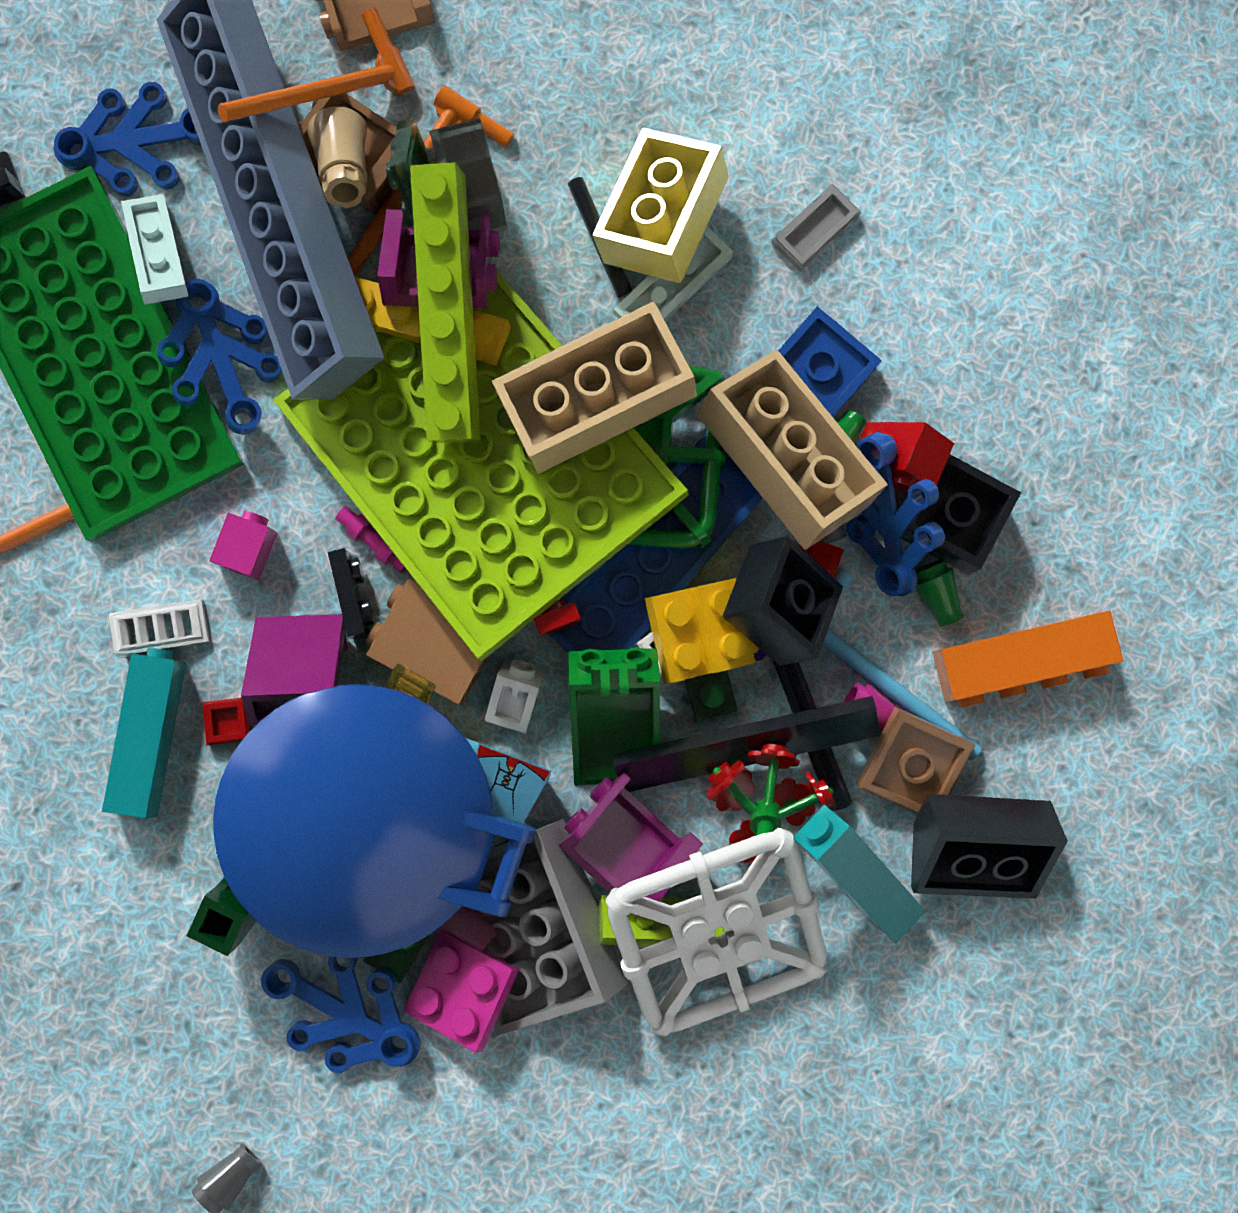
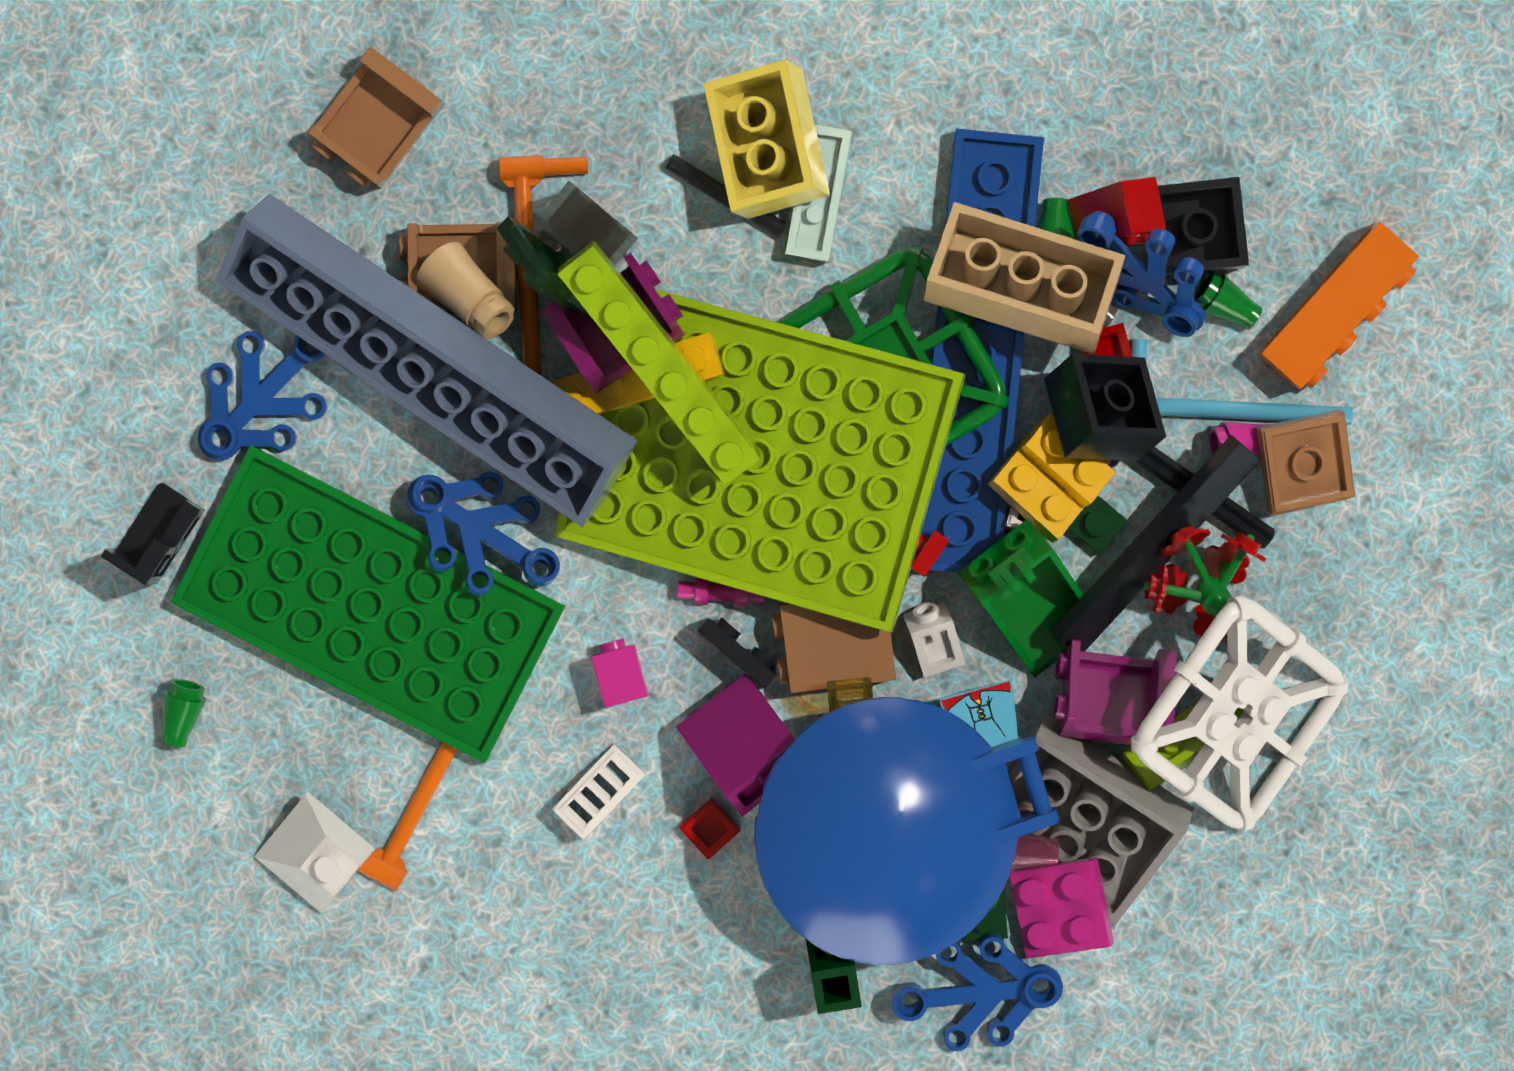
camera: 30 degrees left, 5 degrees up
(144, 734) = (652, 885): teal brick -> none
(154, 249) = (362, 479): light aqua plate -> none
(389, 71) = (444, 181): orange bar -> none
(596, 387) = (830, 344): tan brick -> none
(816, 227) = (905, 55): light grey tile -> none
(859, 873) = (1320, 587): teal brick -> none
(984, 846) = (1408, 490): black slope -> none

